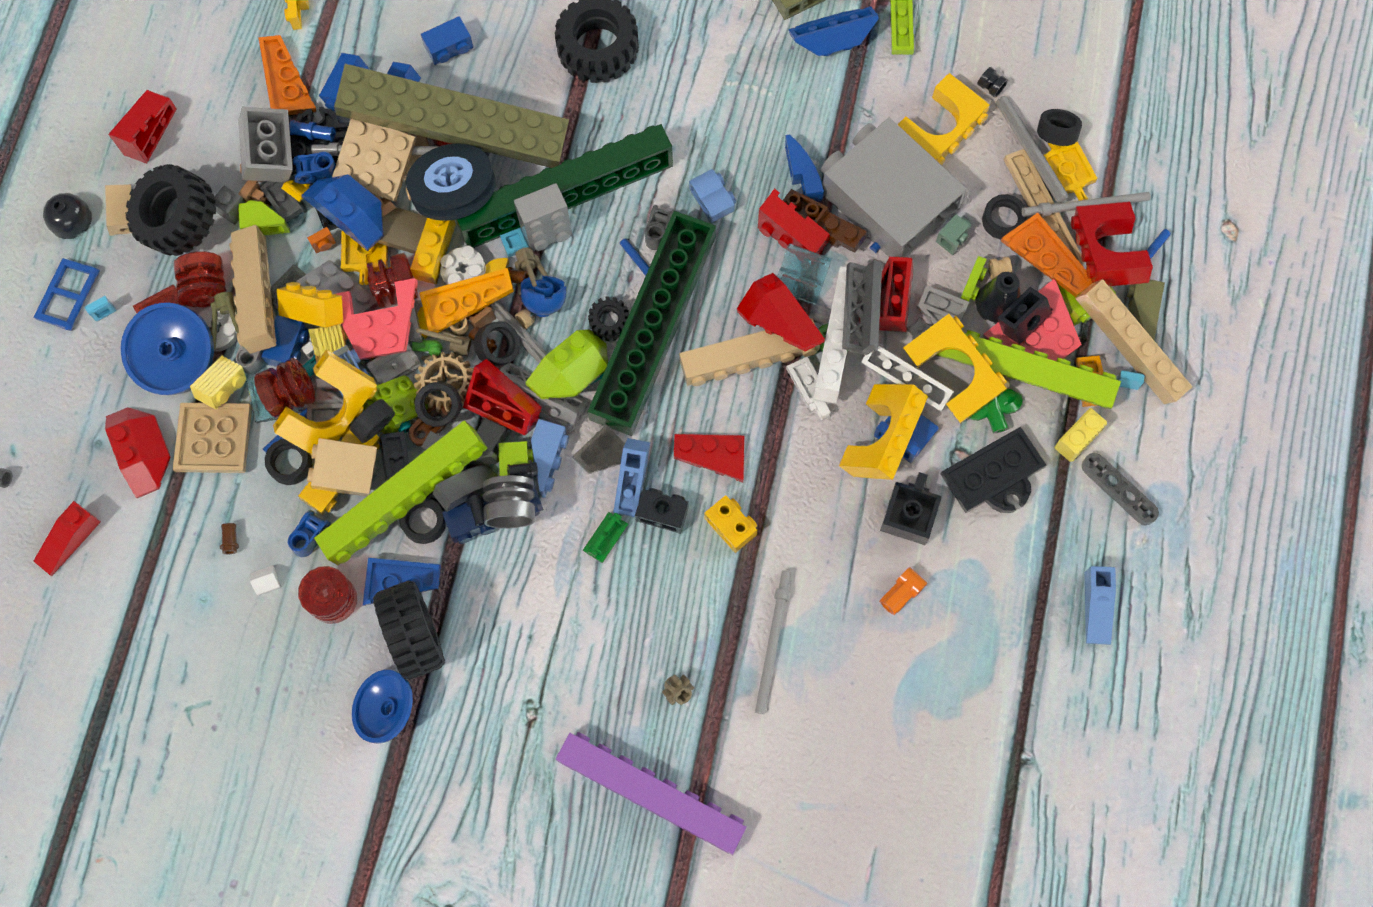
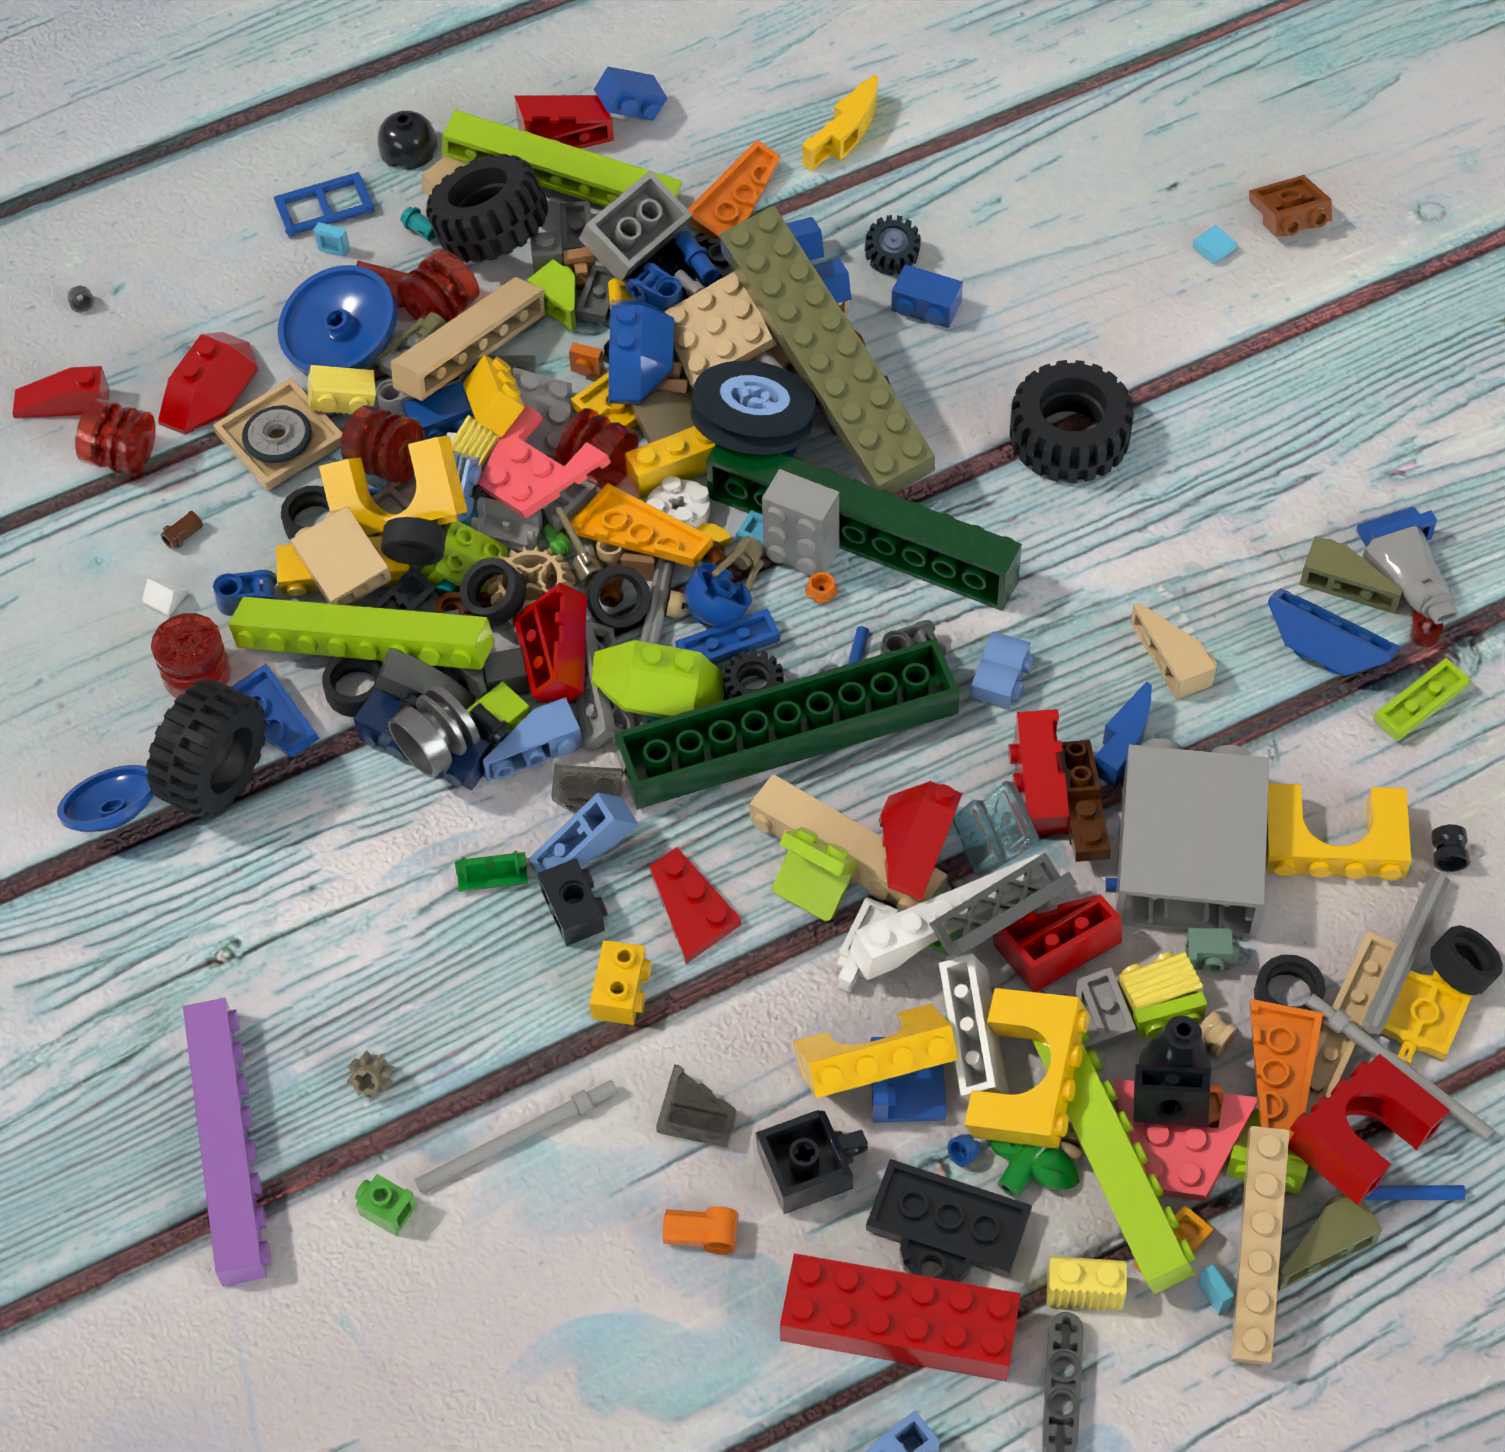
camera: 50 degrees right, 15 degrees down
(128, 531) = (115, 437): none -> clear red wheel
(135, 254) = (419, 223): none -> teal pin
(161, 74) = (630, 93): none -> blue brick
(178, 148) = (554, 163): none -> lime brick
(222, 174) = (573, 220): none -> dark grey plate
(225, 449) = (270, 450): none -> light grey wheel
(397, 29) = (892, 244): none -> black wheel
(572, 310) = (729, 640): none -> blue plate
(581, 234) = (824, 581): none -> orange plate
(754, 380) = (814, 873): none -> lime bracket
(768, 737) = (391, 1212): none -> bright green brick
(778, 109) = (1175, 653): none -> tan slope
(835, 543) = (694, 1112): none -> clear smoke wing
(954, 270) = (1159, 982): none -> light yellow brick
(962, 438) = (960, 1144): none -> blue hinge
(1028, 534) = (899, 1317): none -> red brick

